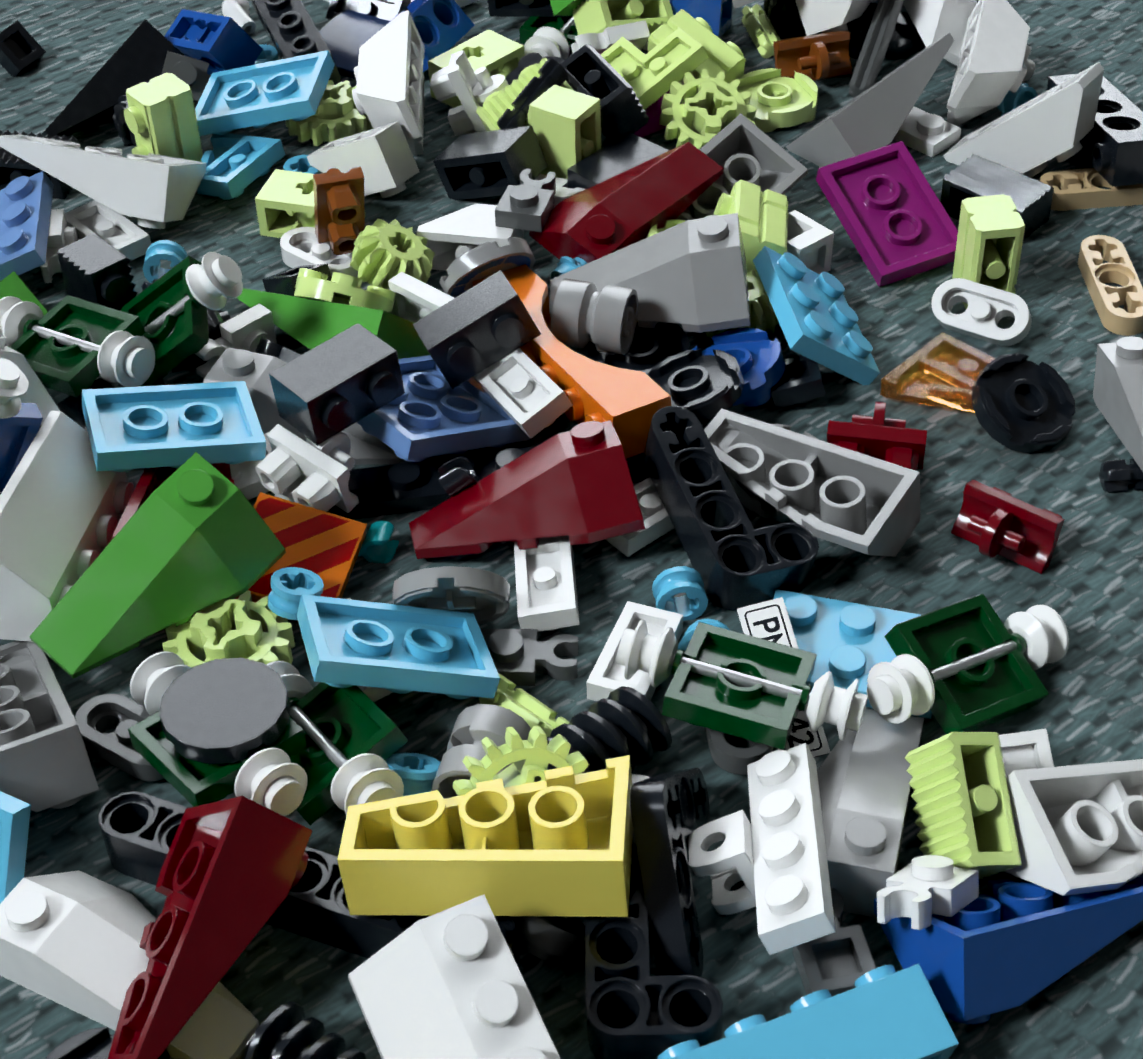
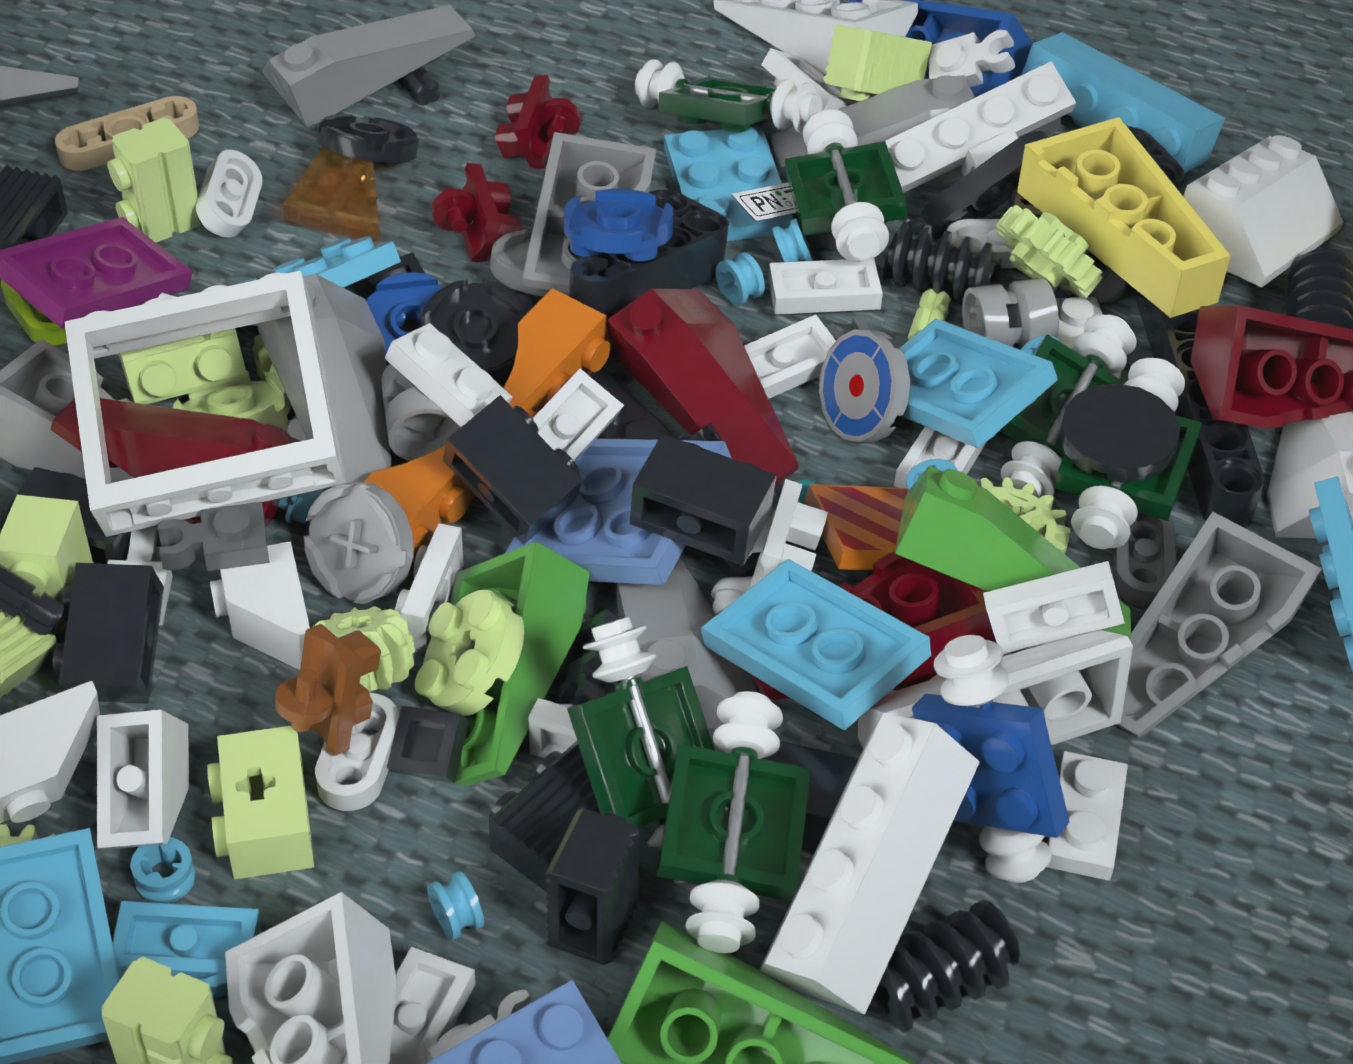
camera: 120 degrees left, 5 degrees up
(65, 553) = (1054, 607): none -> white plate
(557, 214) = (216, 483): none -> white window
(583, 300) = (444, 373): none -> white plate
(725, 477) = (618, 224): none -> blue plate

